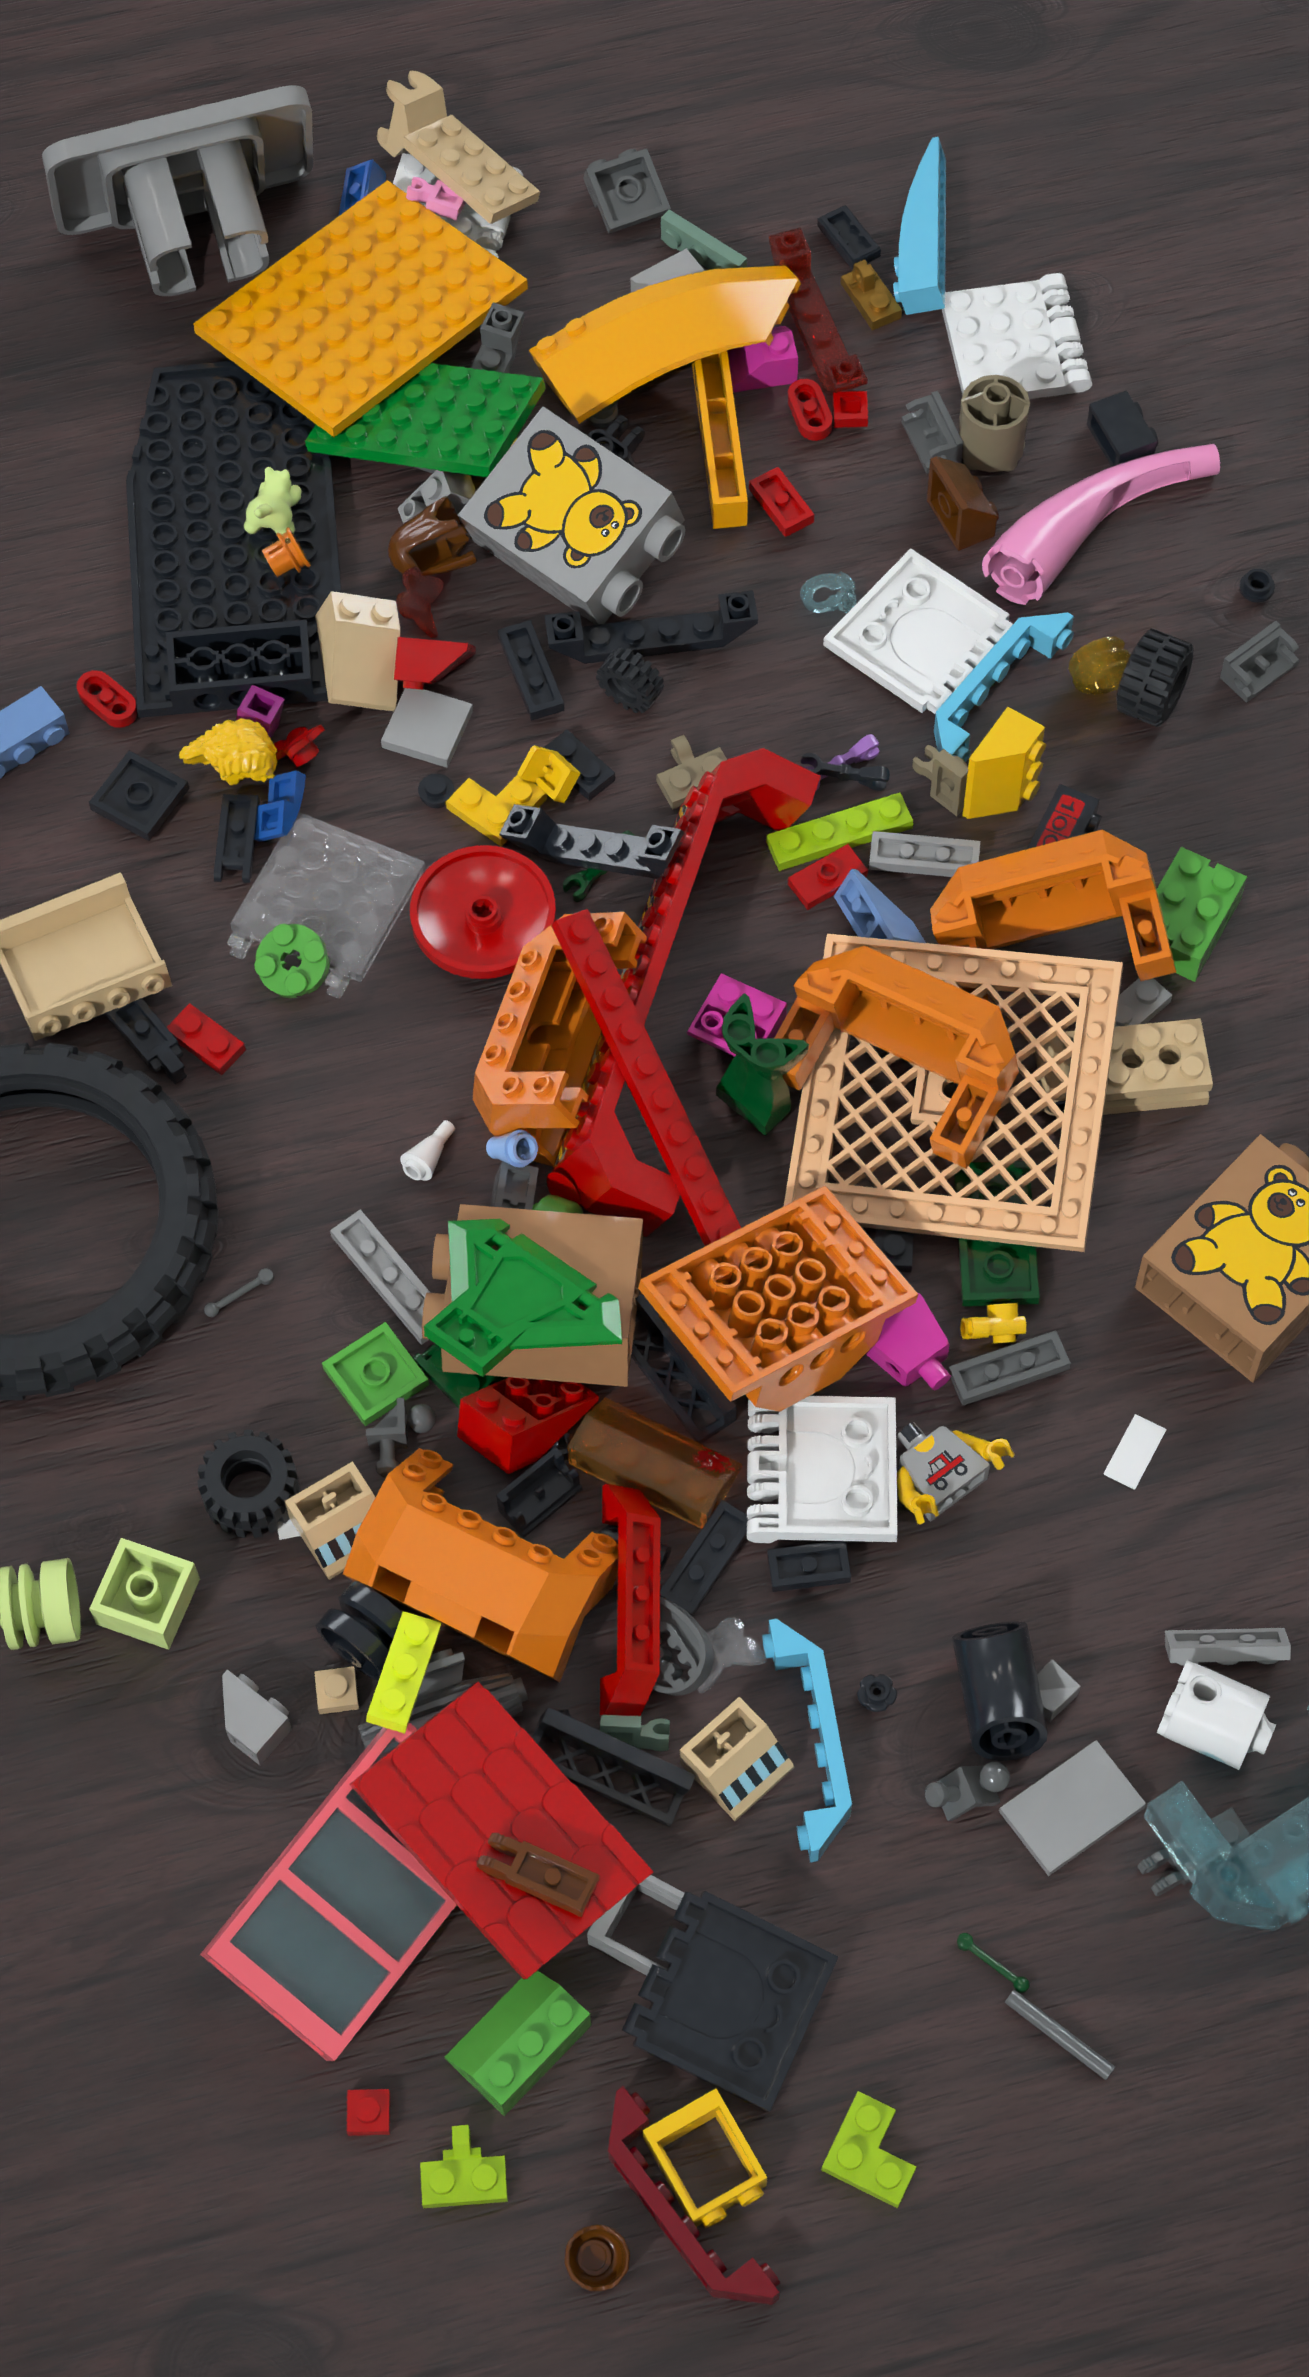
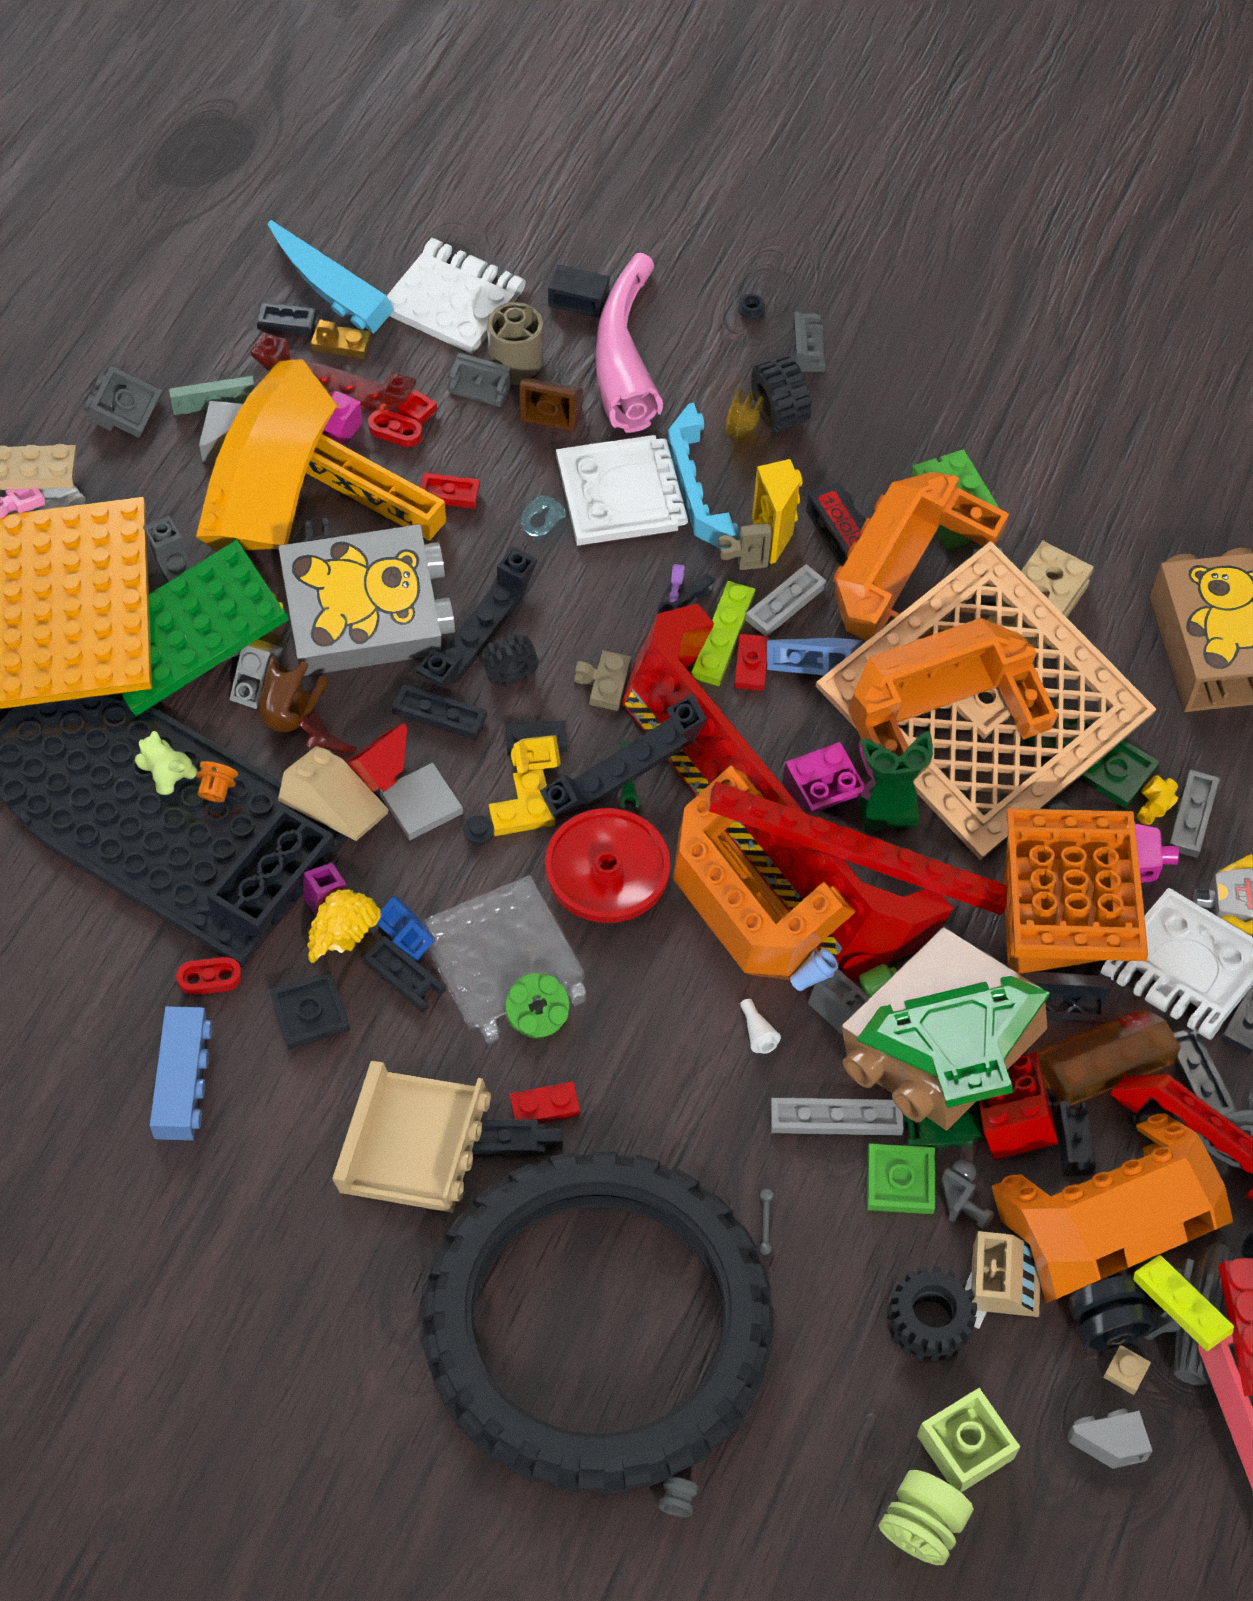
camera: 55 degrees left, 5 degrees down
(299, 745) = (368, 882): red animal -> none

